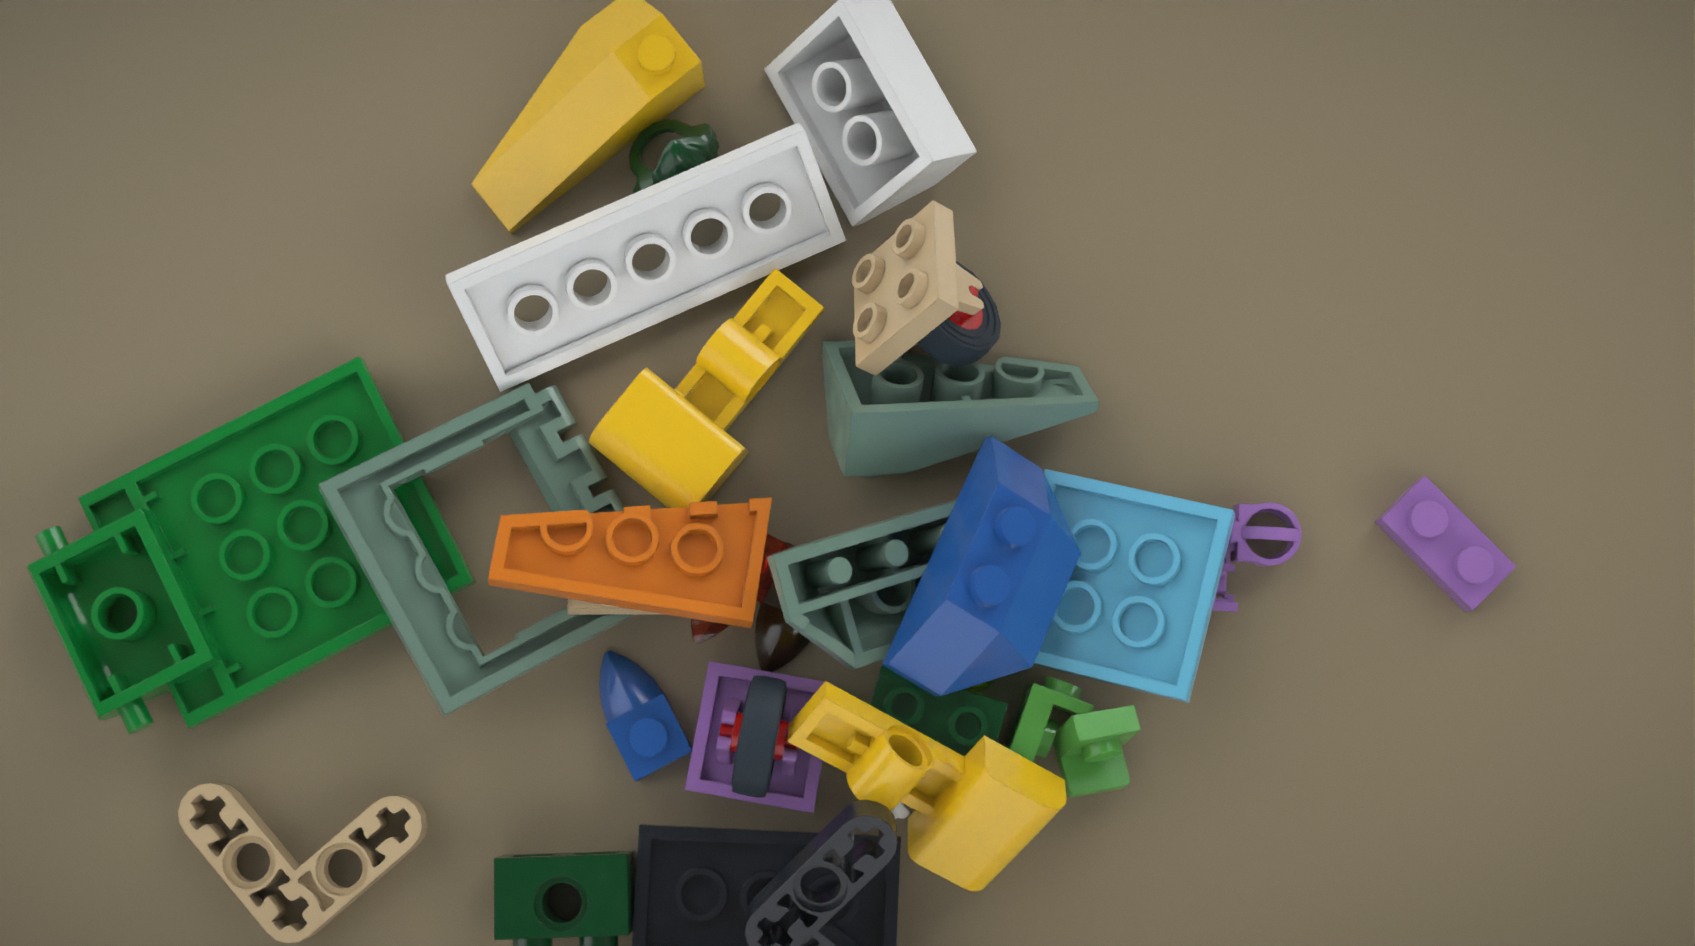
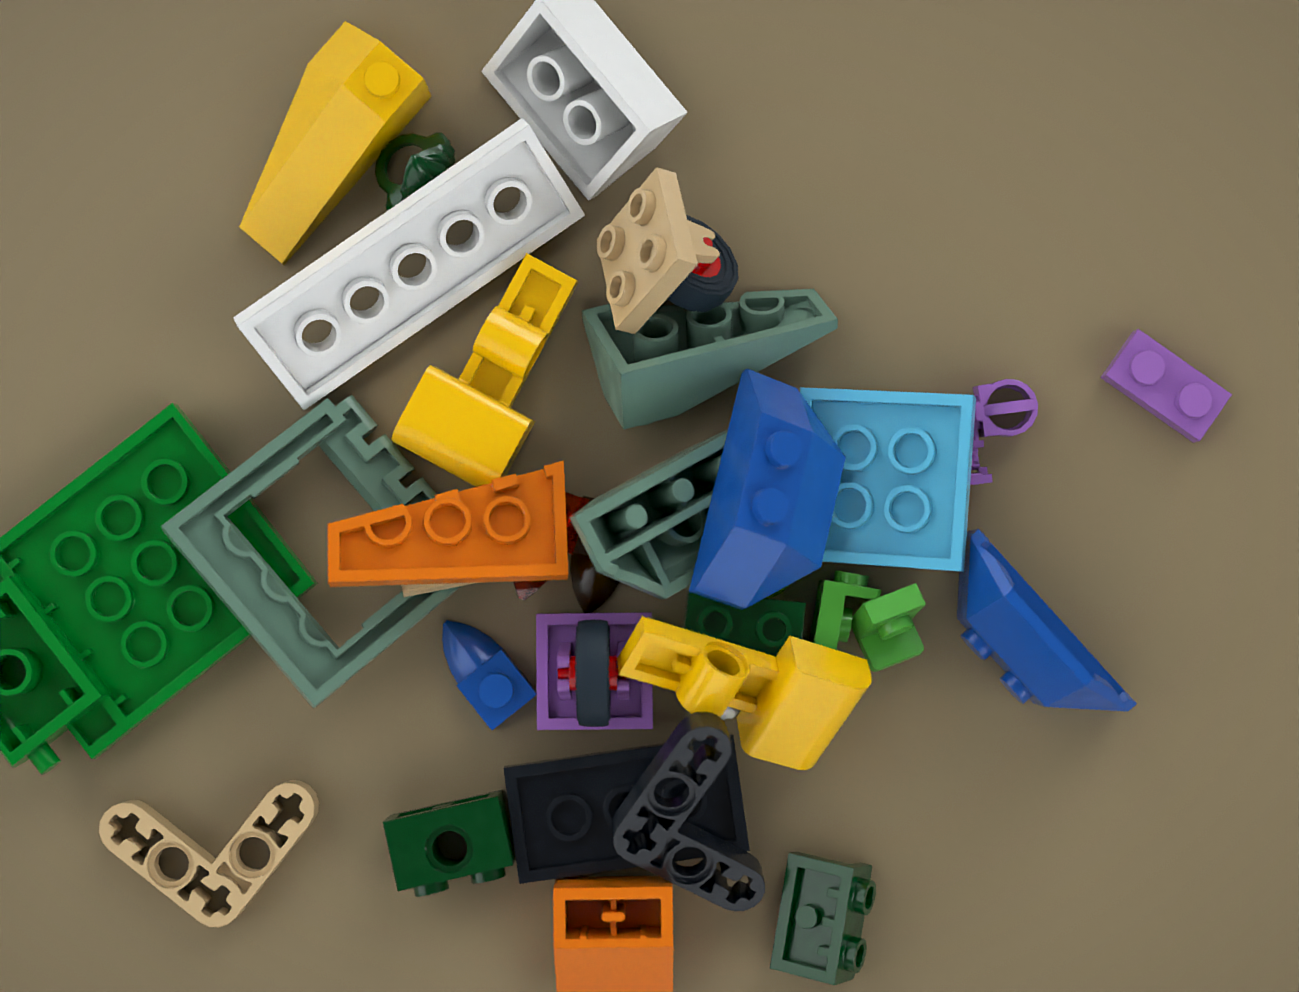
camera: 10 degrees left, 5 degrees up
(1246, 791) = (1027, 637): none -> blue wedge

